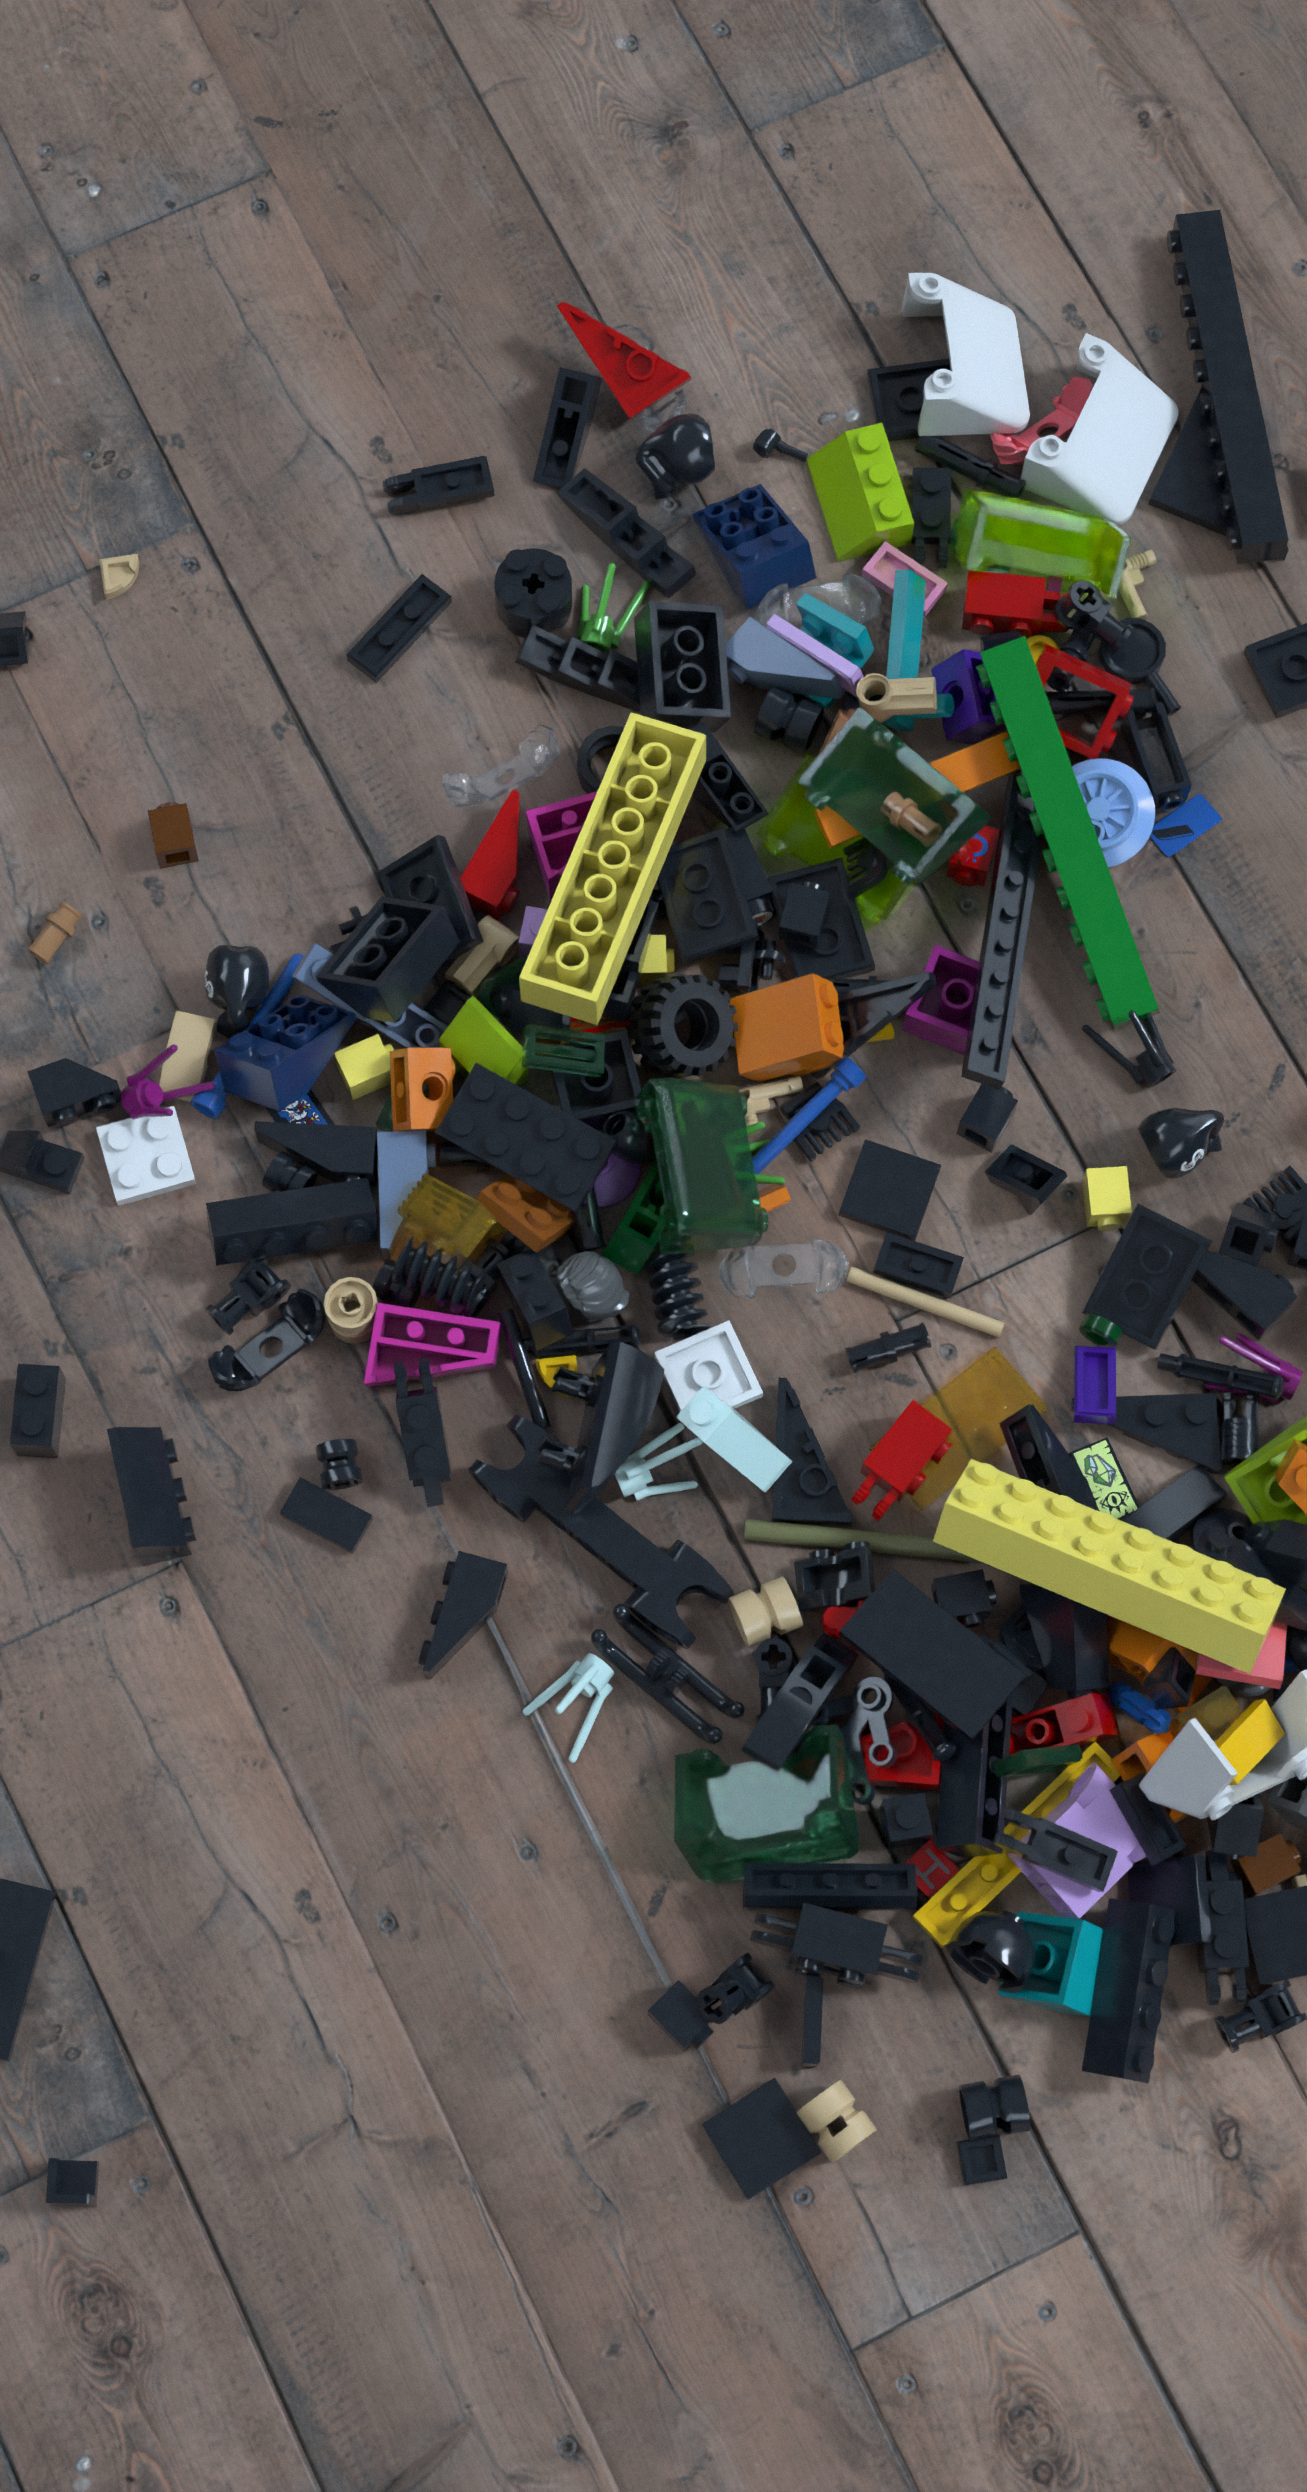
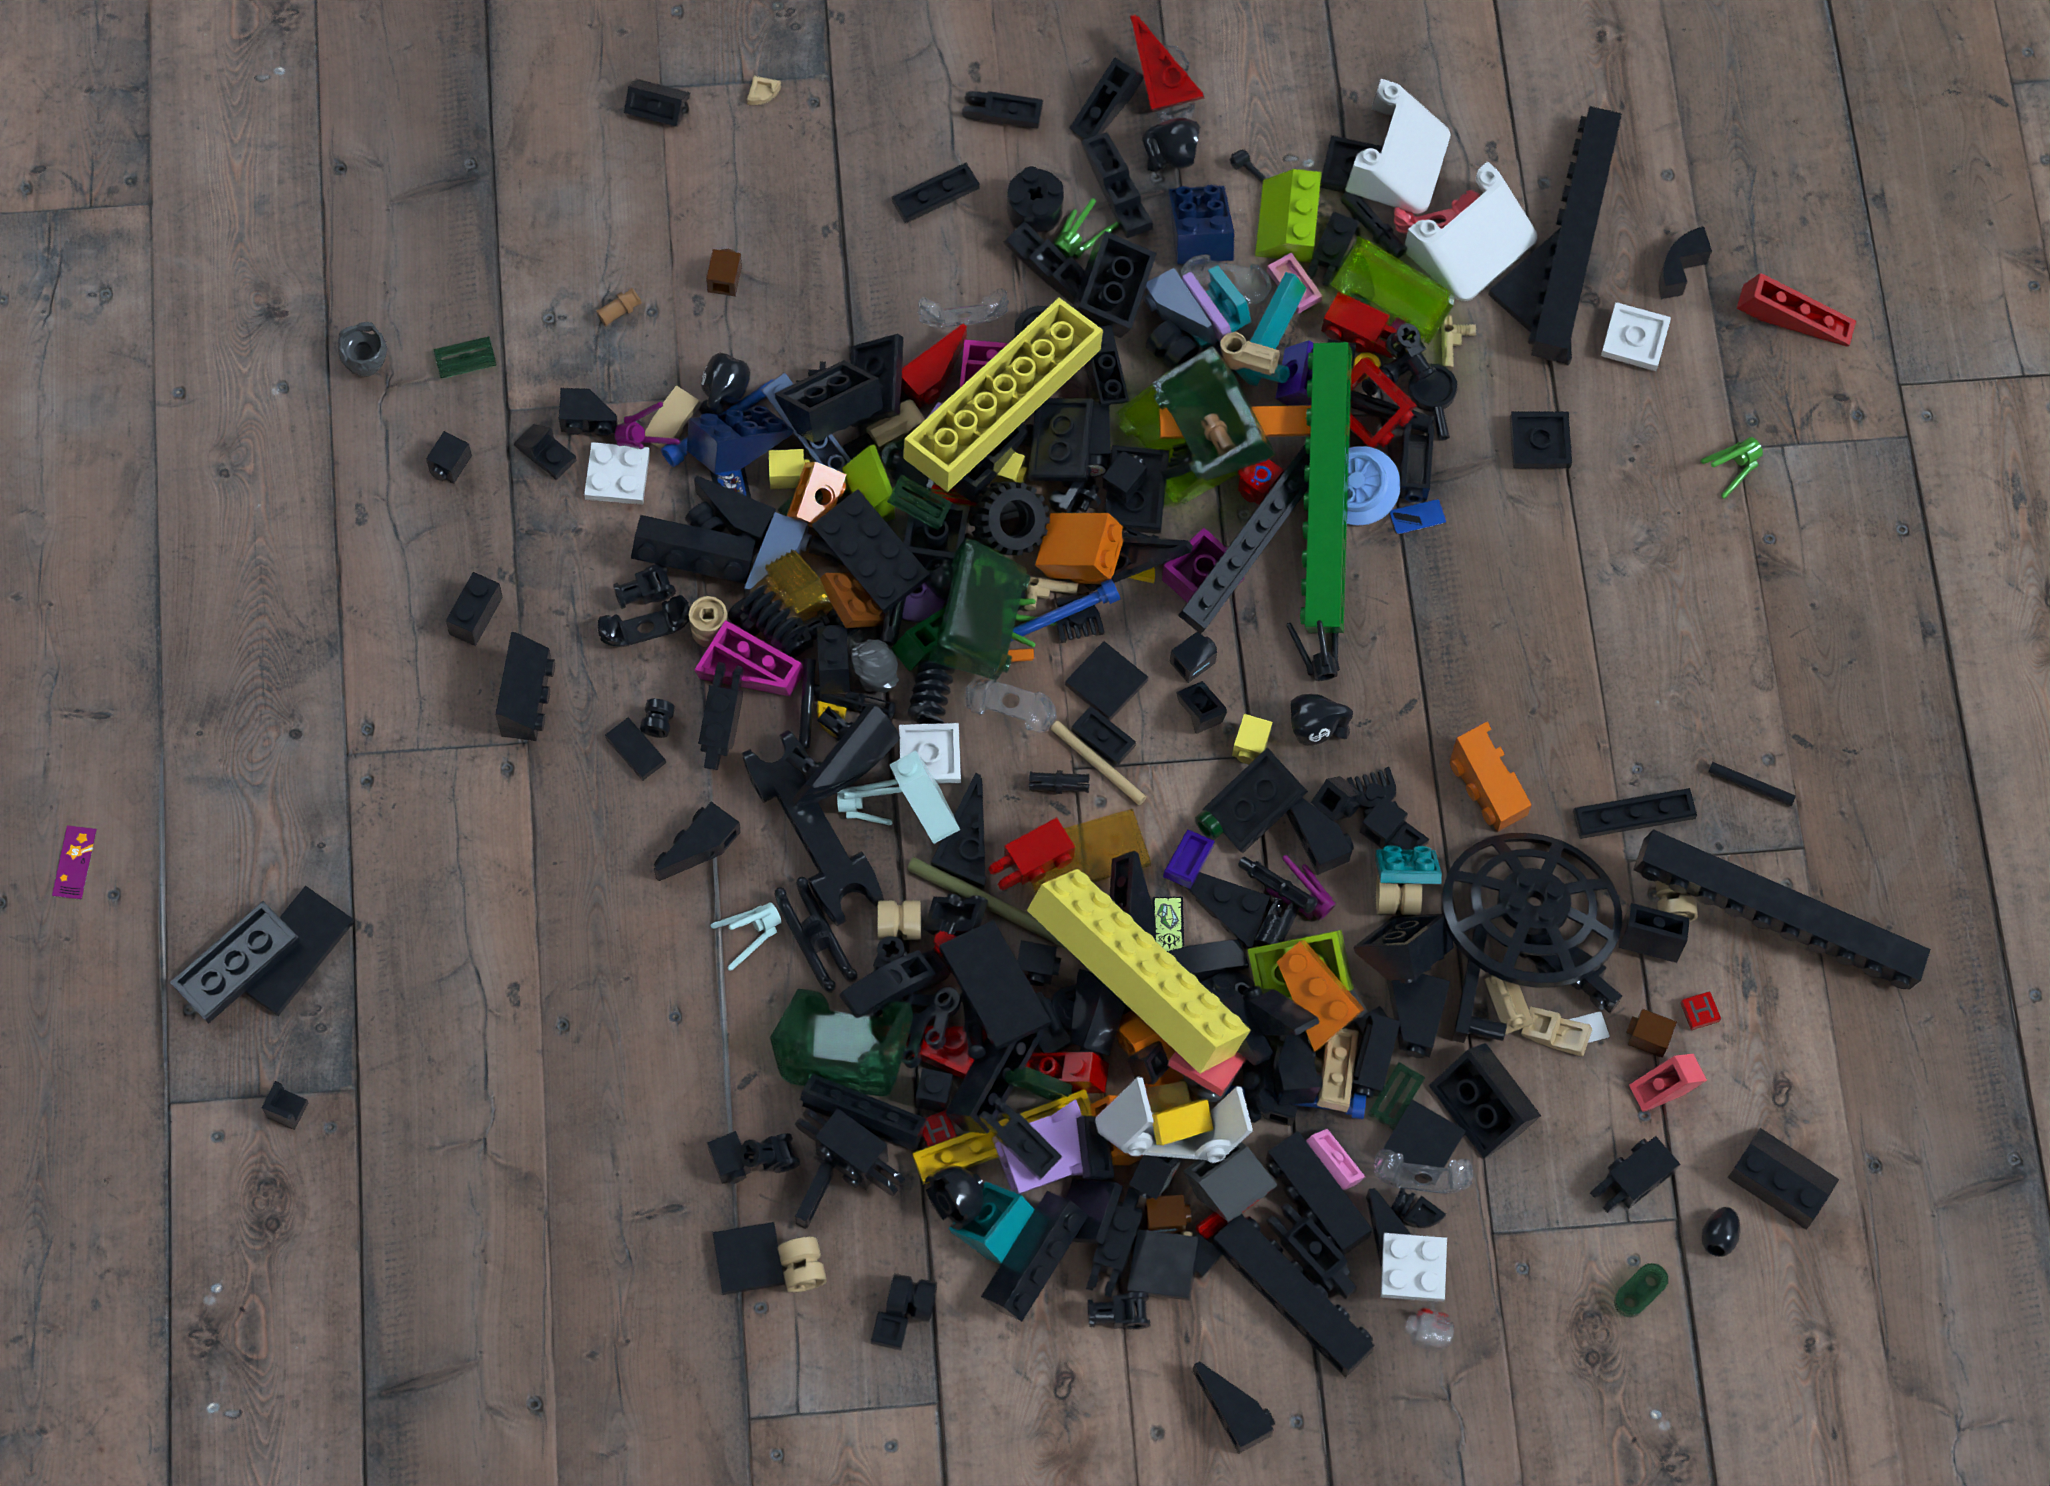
camera: 20 degrees right, 5 degrees down
(1139, 1708) = (1120, 1073): blue axle -> none

